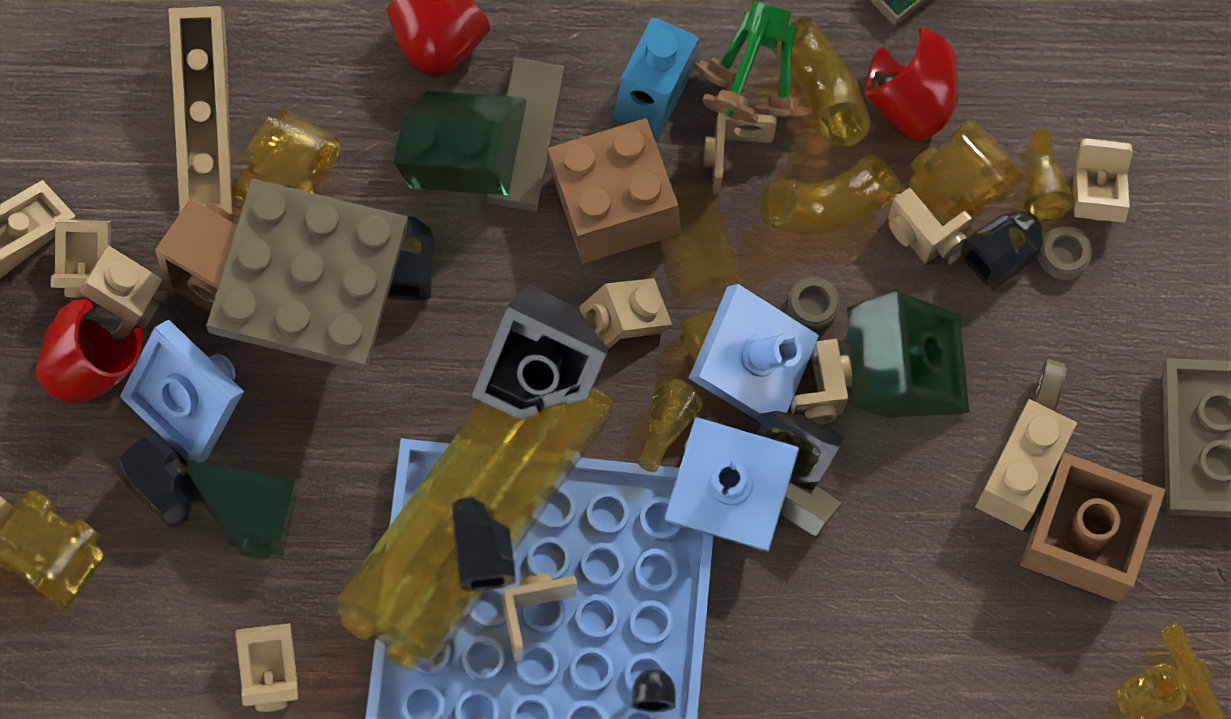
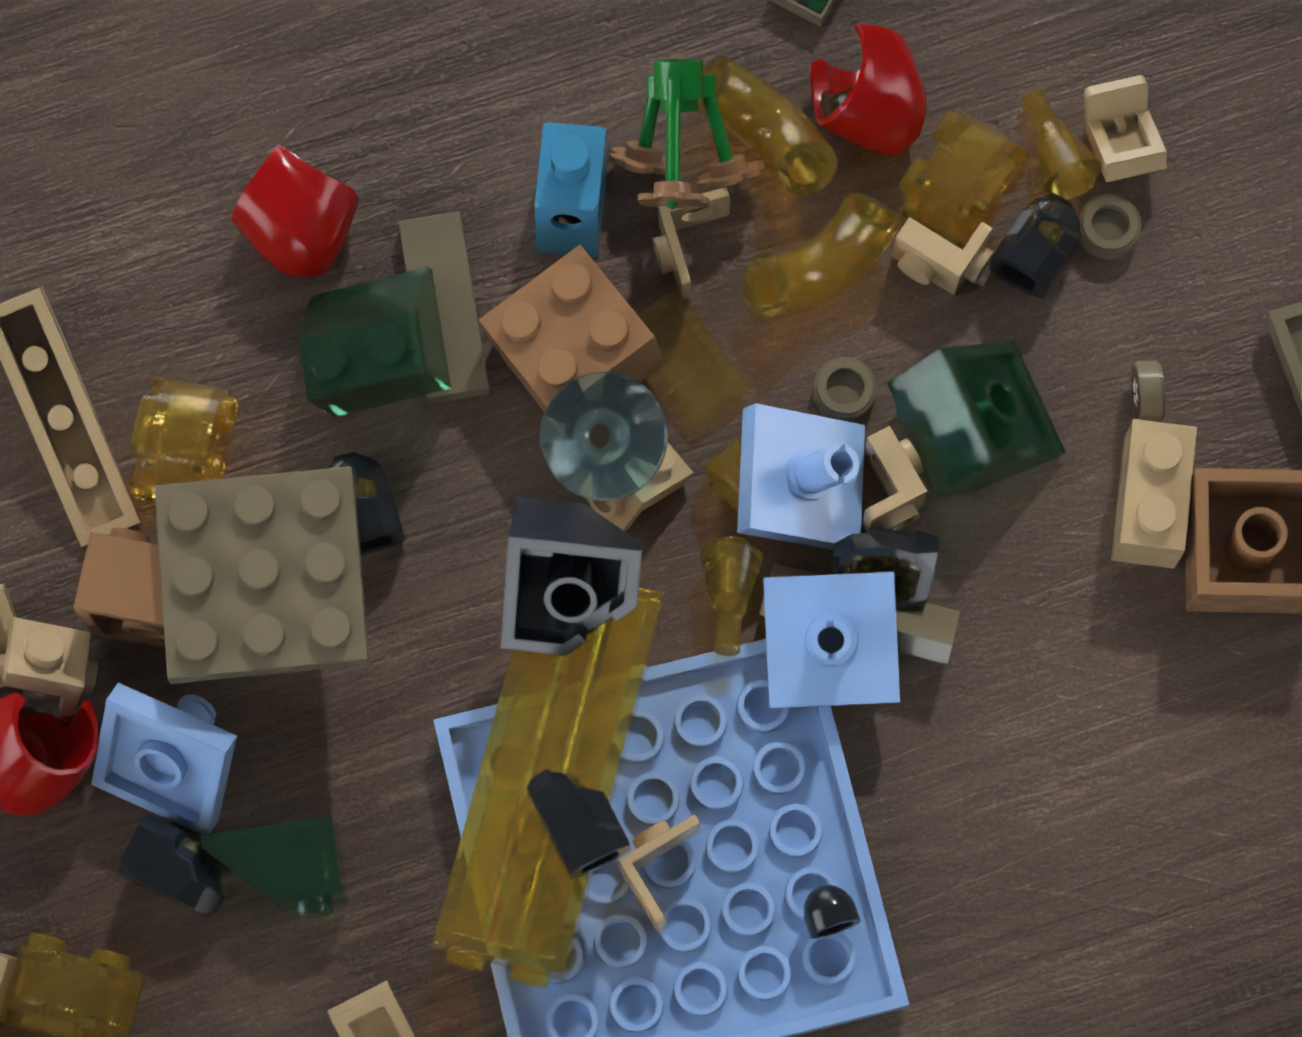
camera: 10 degrees left, 5 degrees up
(637, 260) = (635, 441): none -> clear light blue dish

